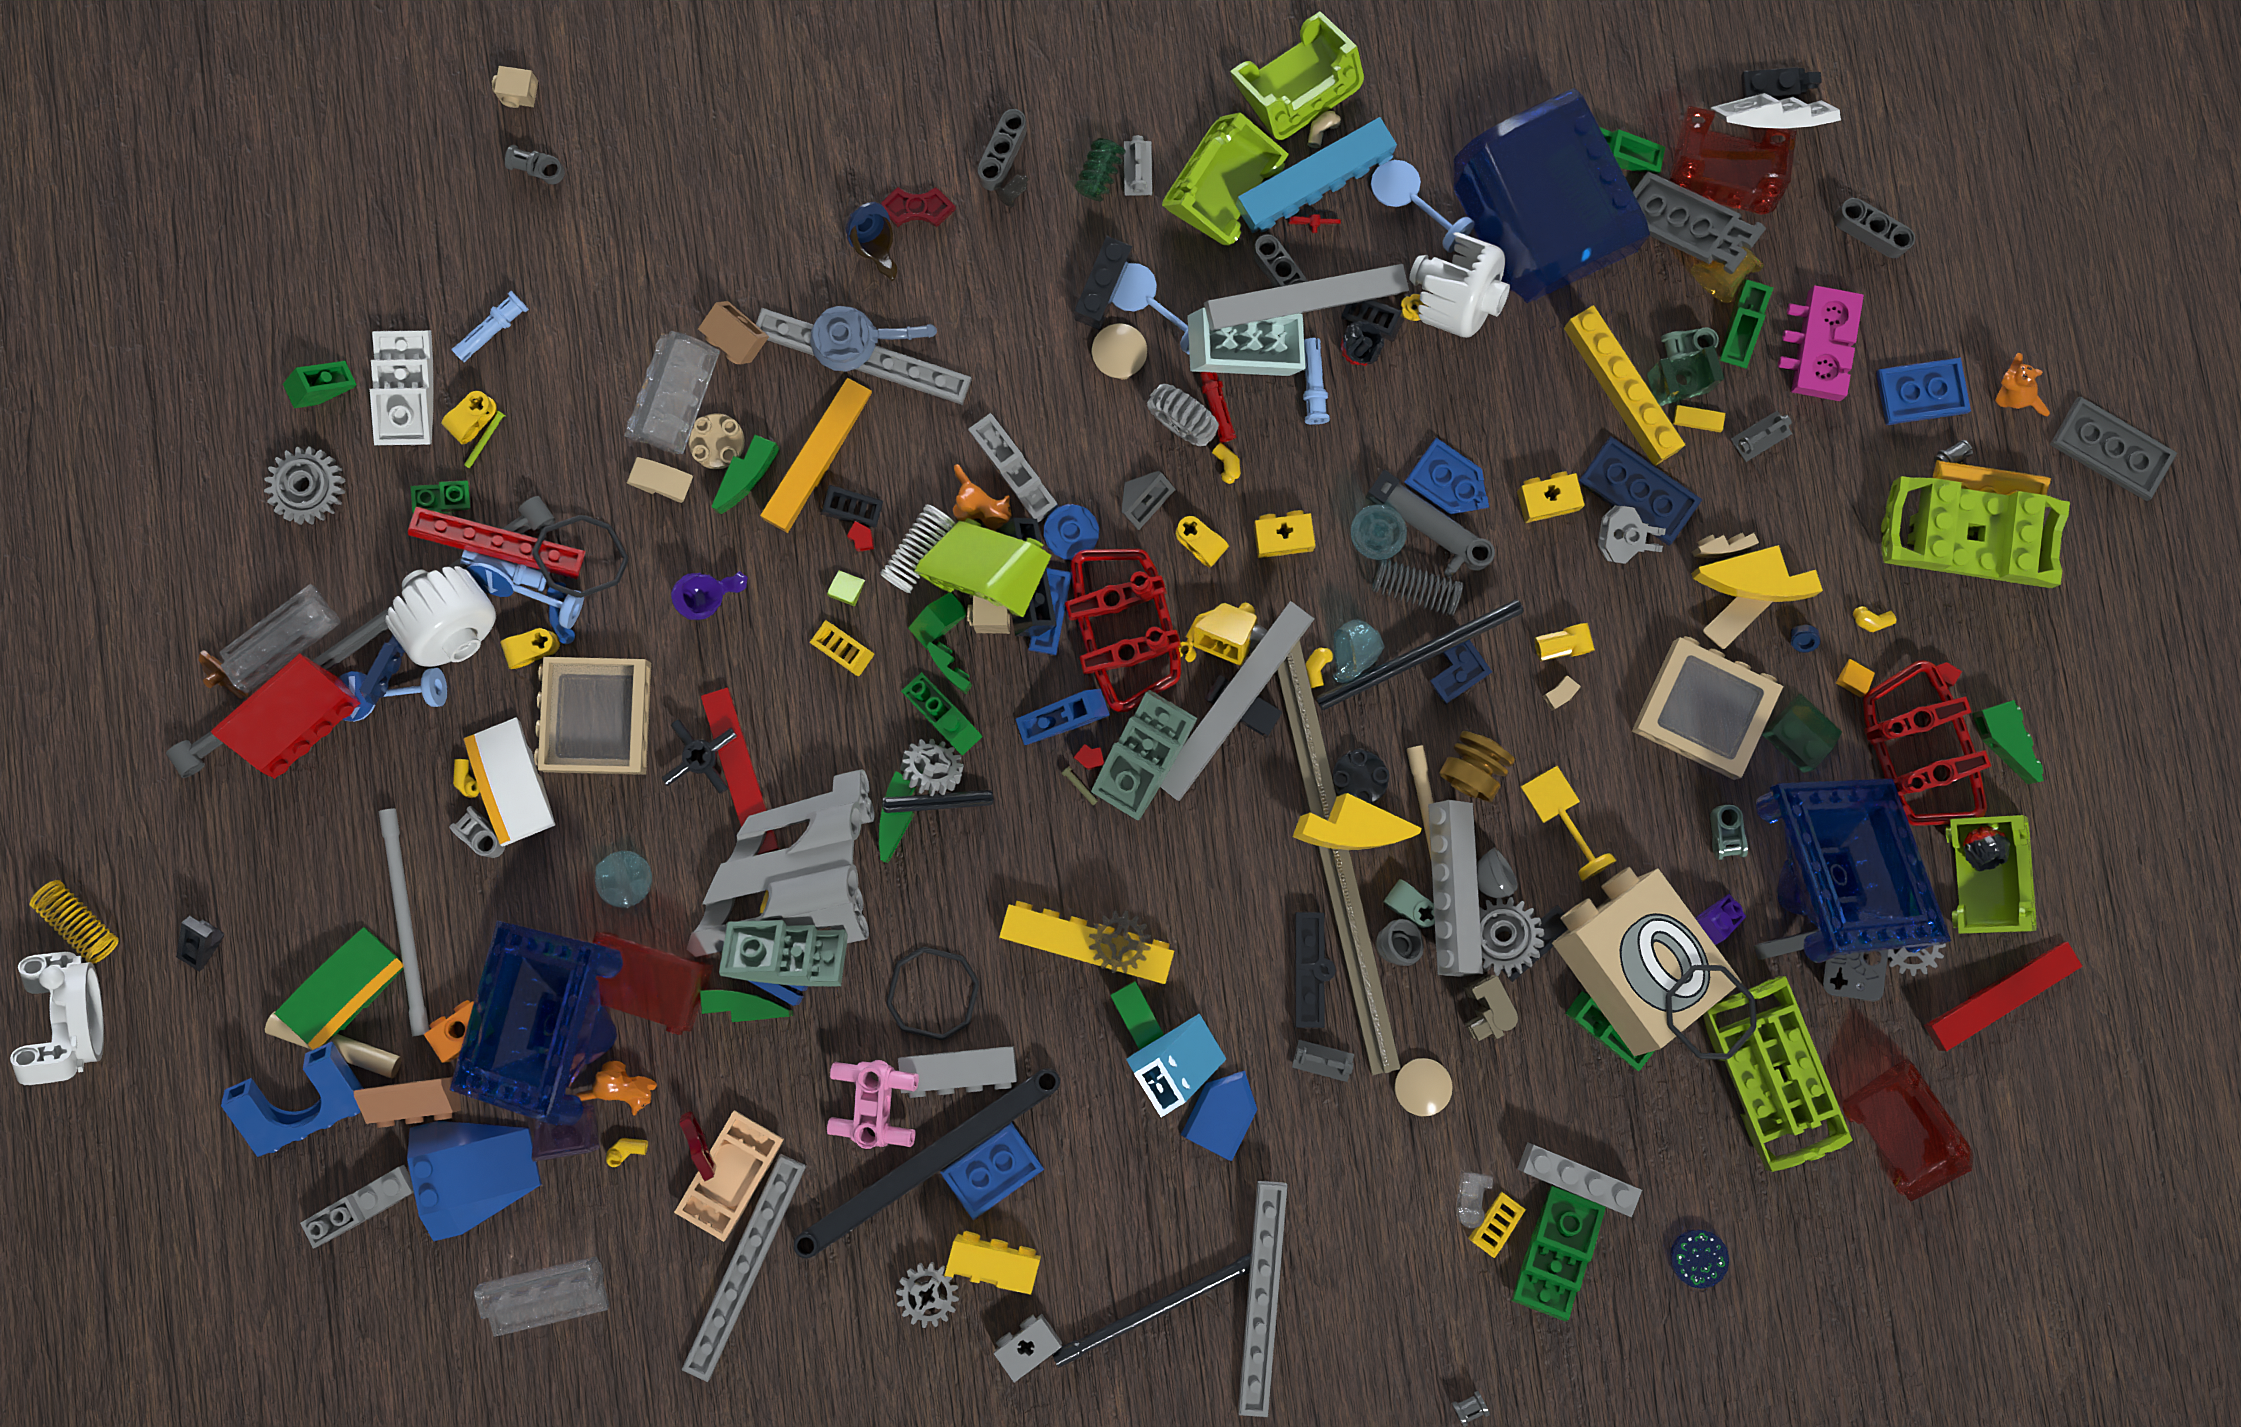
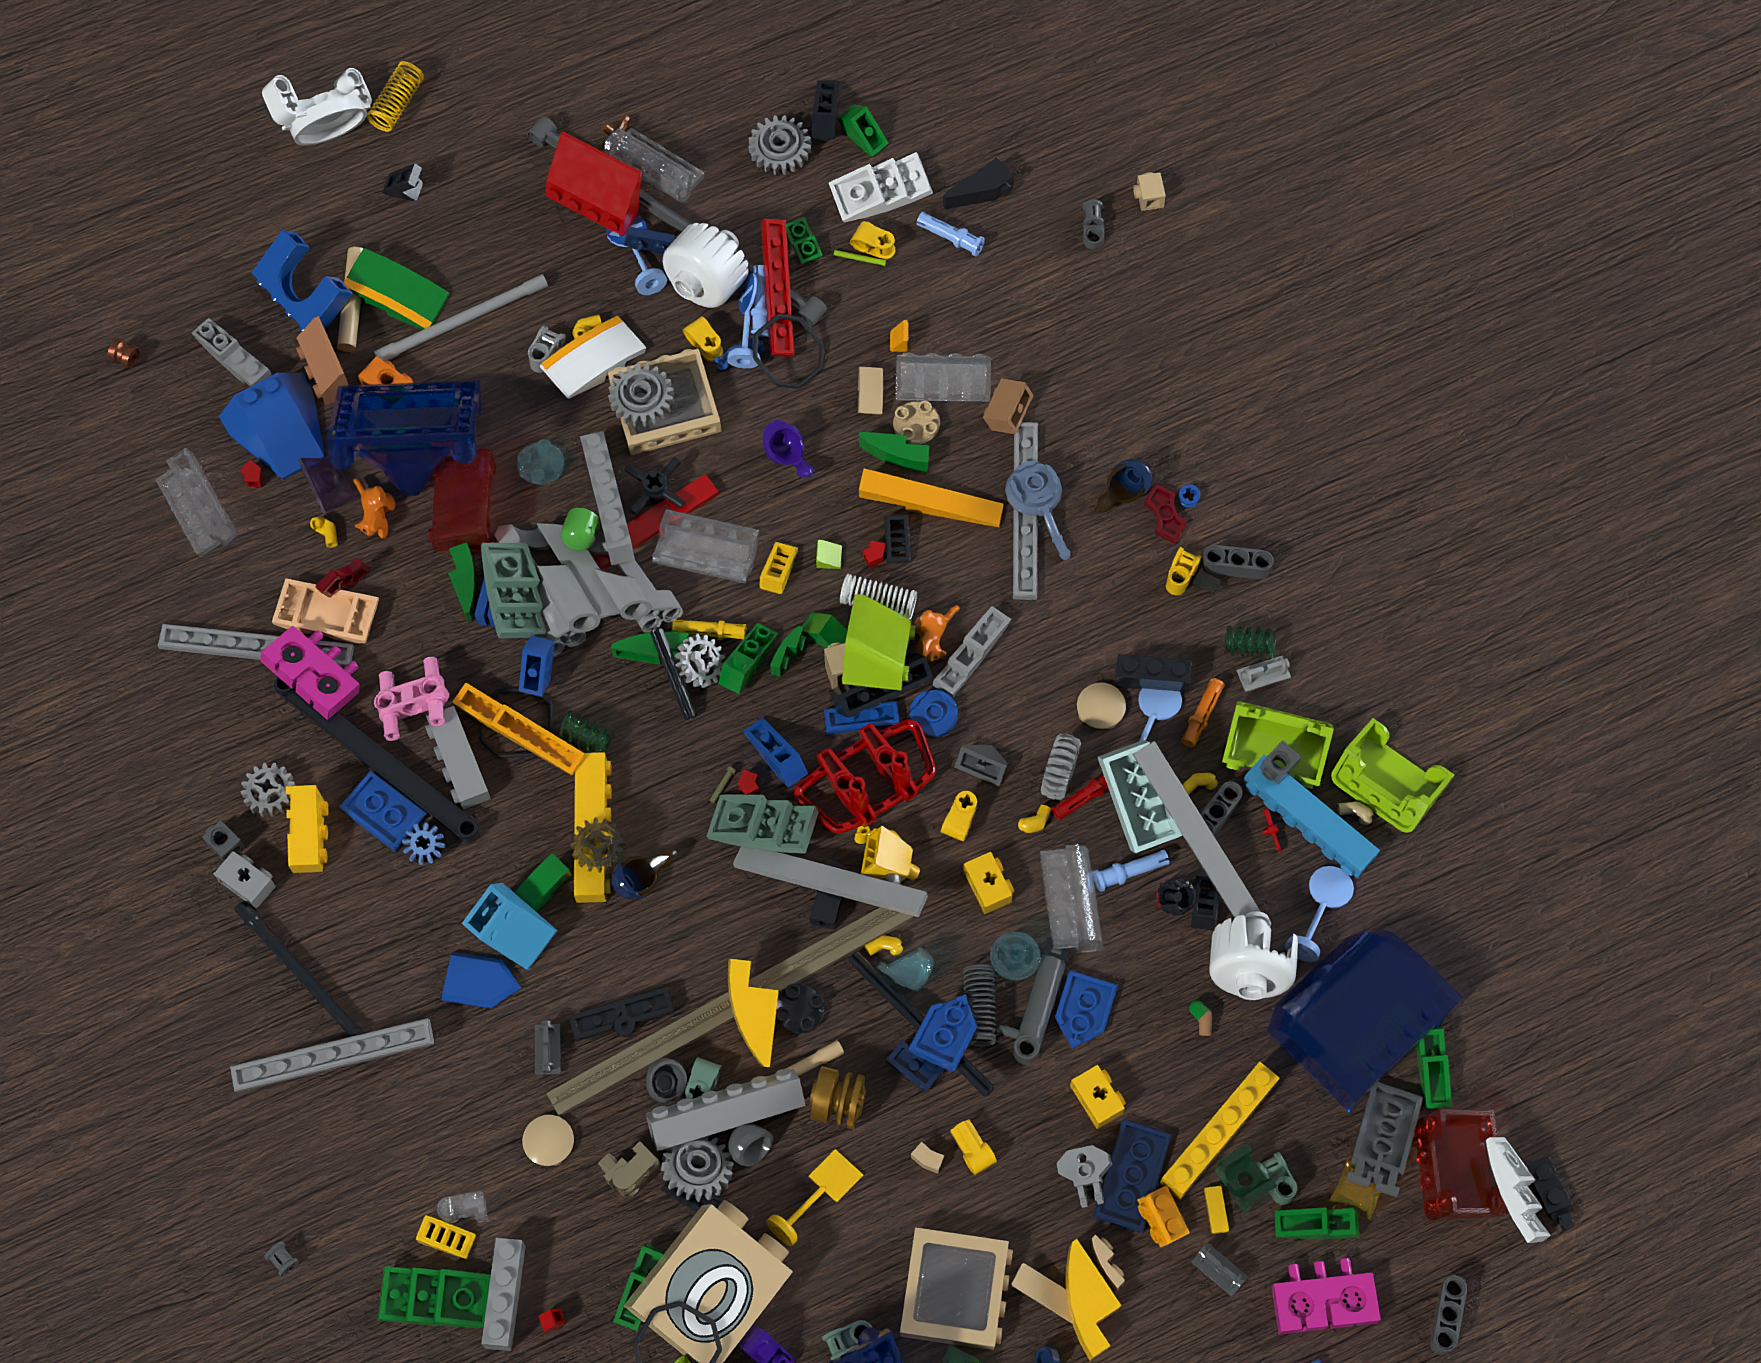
camera: 75 degrees right, 15 degrees down
(276, 418) = (825, 110): none -> black slope
(313, 1335) = (123, 353): none -> copper wheel
(443, 270) = (982, 186): none -> black slope
(525, 1218) = (252, 474): none -> red piece
(566, 734) = (654, 385): none -> light grey gear
(603, 426) = (899, 337): none -> light orange slope
(700, 814) = (607, 498): none -> light grey brick
(734, 856) = (580, 529): none -> bright green helmet
(795, 720) = (706, 546): none -> clear brick
(810, 1206) = (311, 670): none -> dark pink piece
(881, 952) = (536, 666): none -> blue brick
(893, 746) = (720, 630): none -> yellow pin
(898, 179) = (1193, 490): none -> blue bush
(948, 993) = (518, 728): none -> light orange slope
(976, 919) = (584, 735): none -> clear green piece
(979, 1349) = (220, 830): none -> dark grey brick
(989, 208) = (1183, 568): none -> yellow piece
(1056, 1142) = (427, 835): none -> medium blue gear
(1160, 905) = (639, 875): none -> piece
(1171, 254) = (1199, 720): none -> orange pin
(1236, 275) = (1200, 779): none -> yellow arm
(1258, 171) = (1284, 754): none -> dark grey brick
(1333, 453) = (1071, 899): none -> clear brick
(1445, 630) = (945, 1033): none -> blue tile
(1495, 361) = (1203, 1015): none -> arm
(1619, 1135) = (552, 1320): none -> red piece
(1694, 473) = (1162, 1216): none -> light orange bracket

